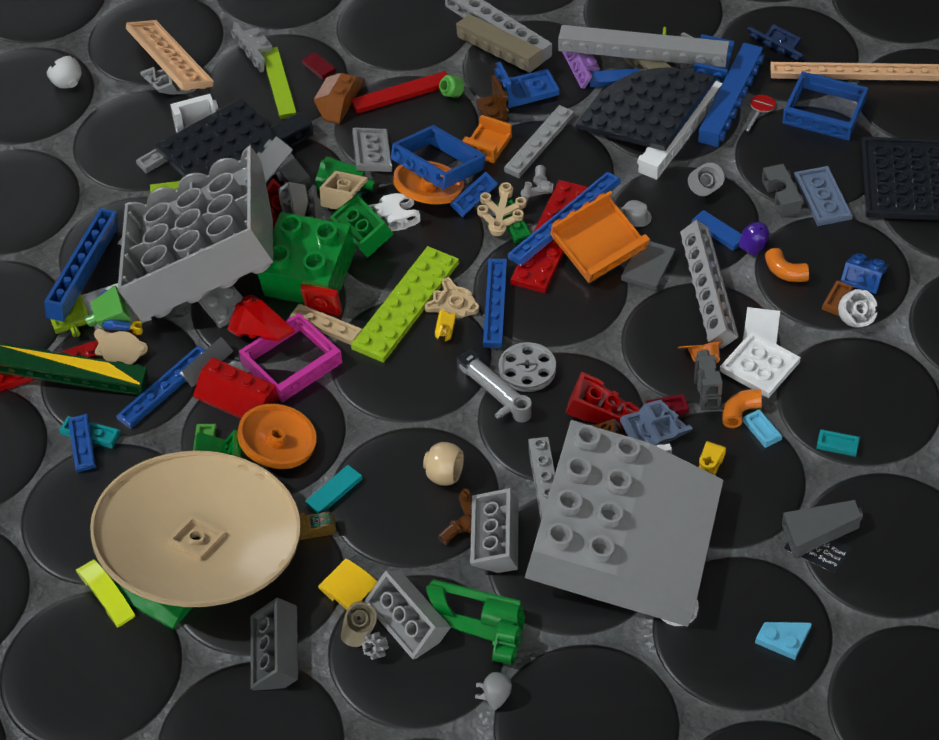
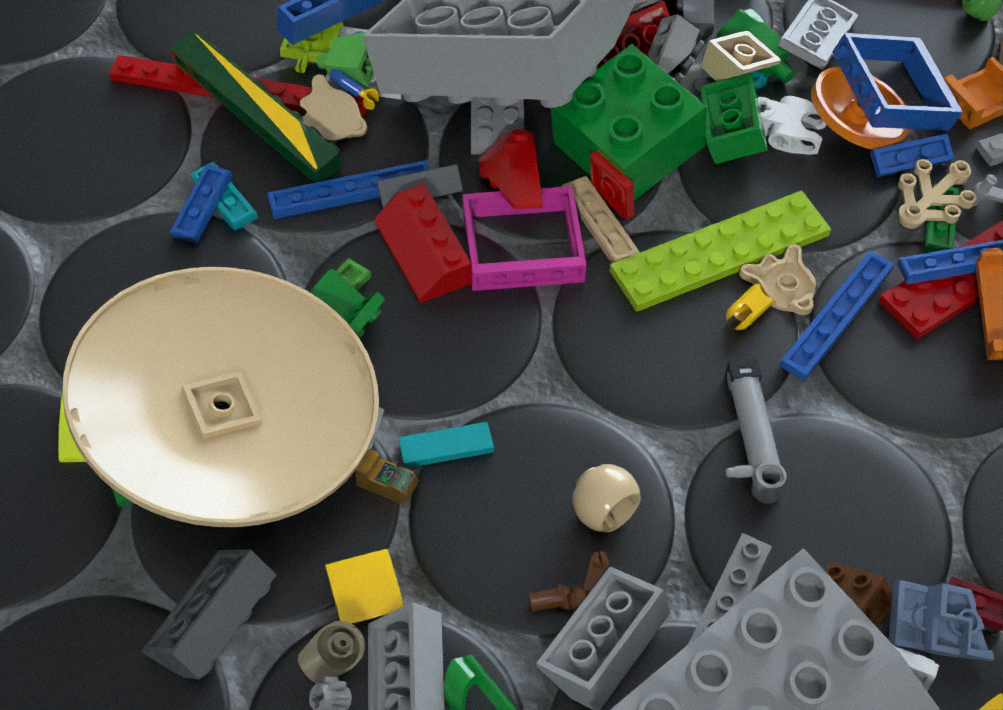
camera: 30 degrees right, 5 degrees up
(276, 436) = (425, 331): orange dish -> none
(531, 373) = (819, 440): light grey wedge -> none
(596, 403) = (879, 538): red wedge -> none

